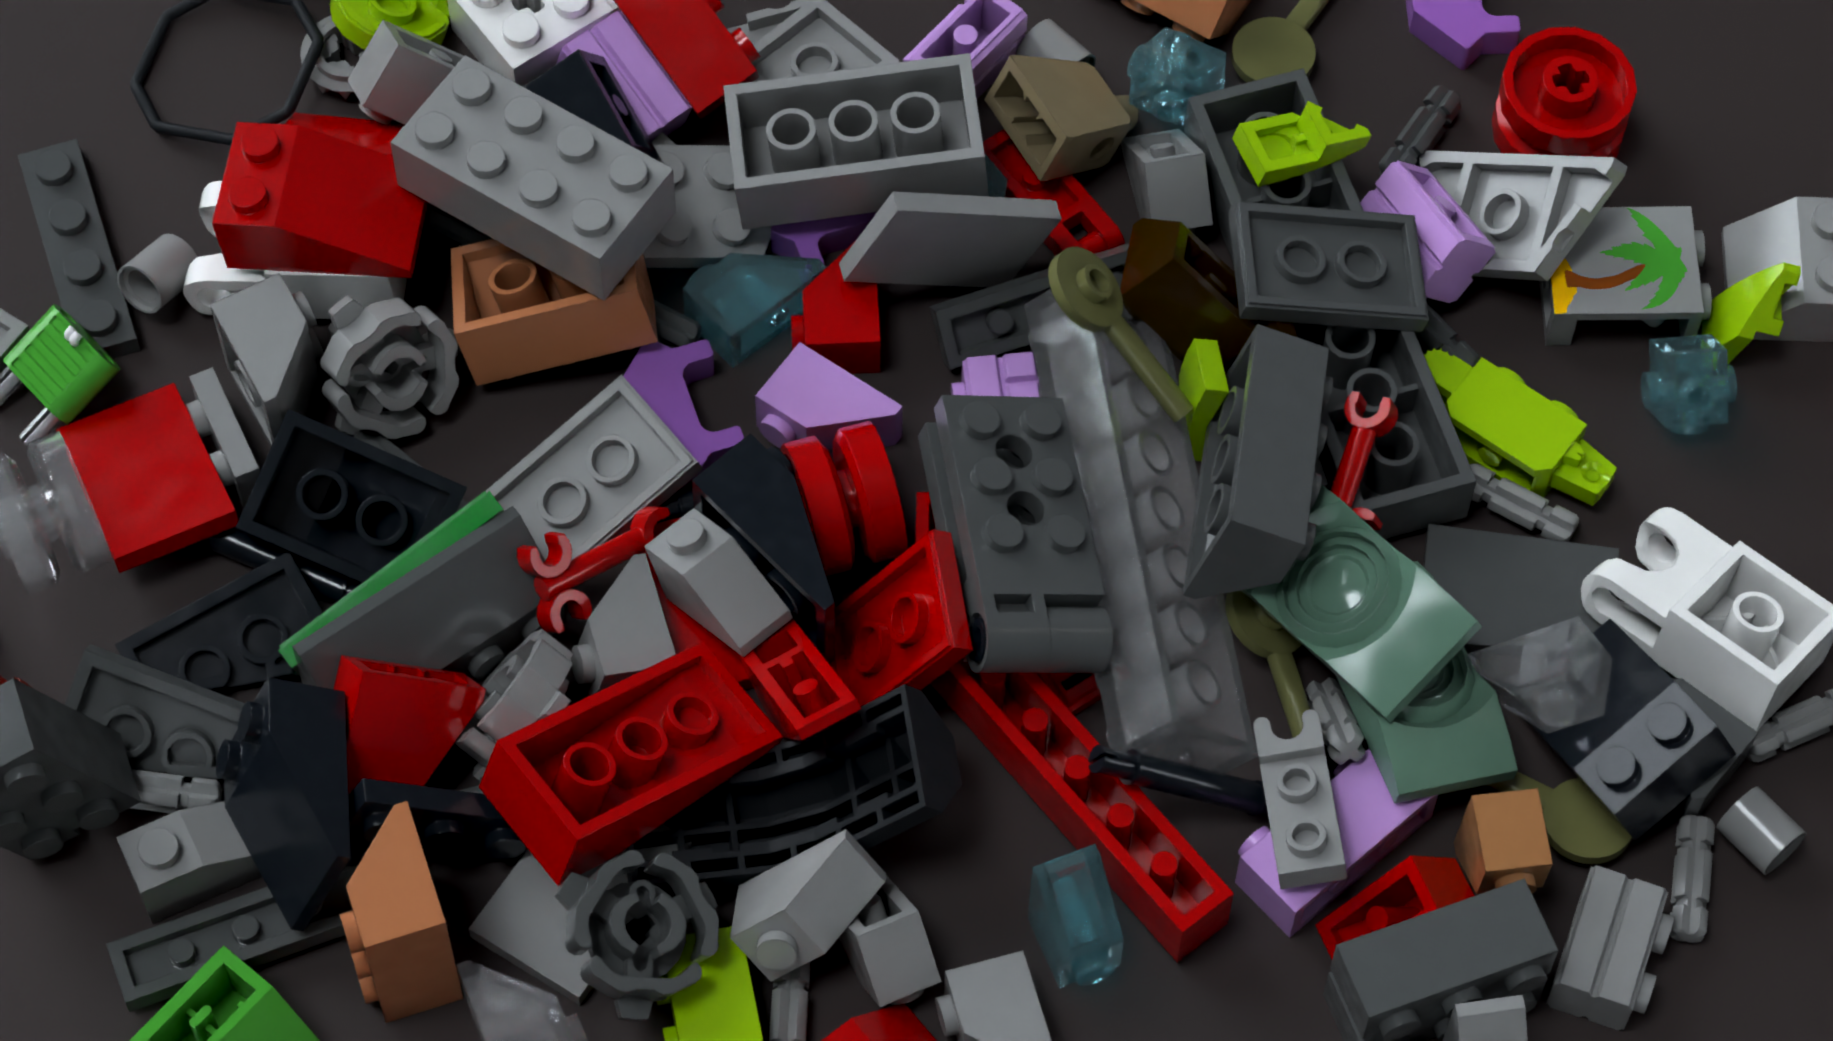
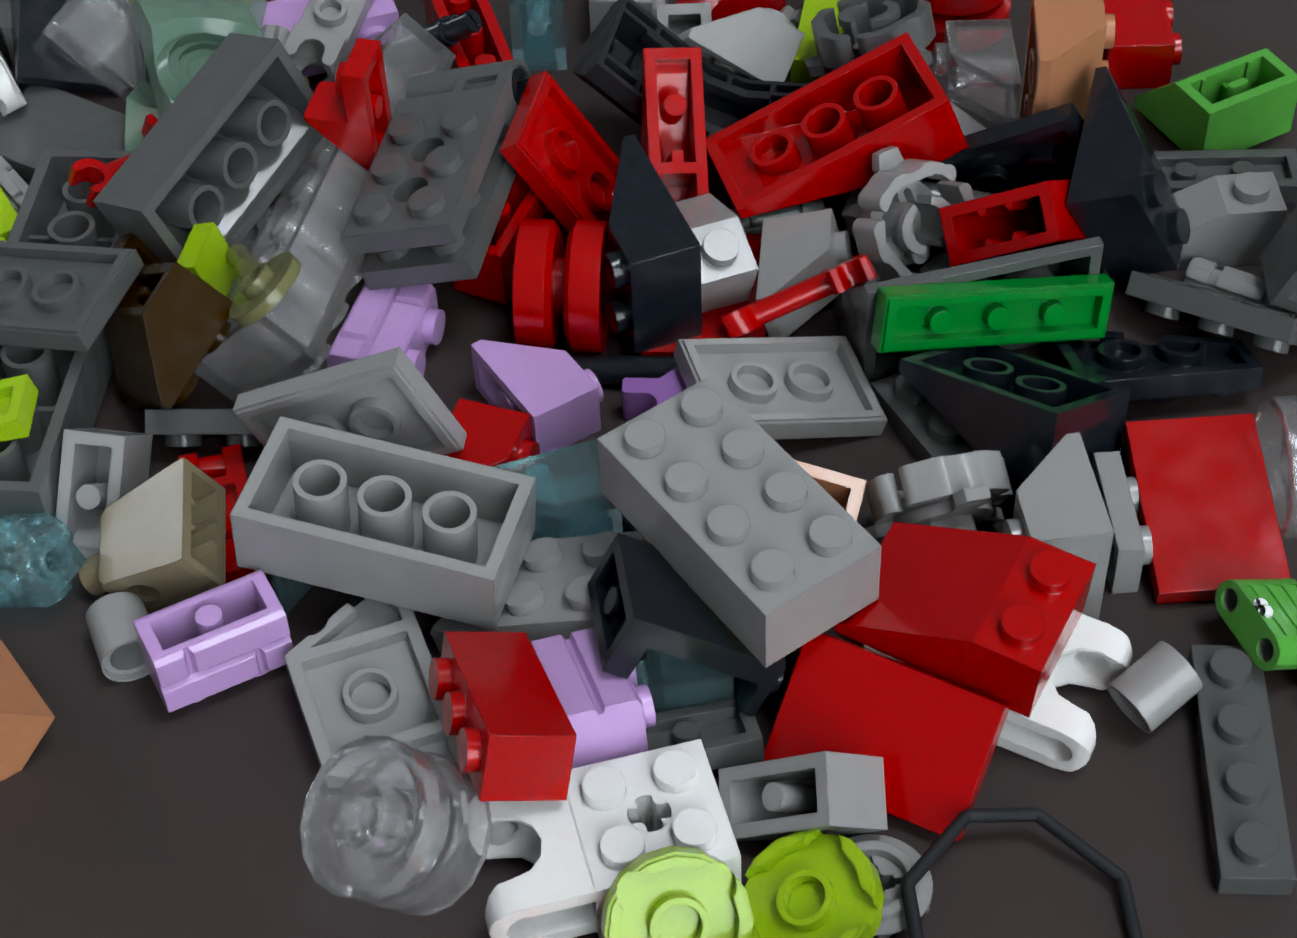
camera: 155 degrees left, 15 degrees down
(1127, 516) = (356, 106): none -> red slope

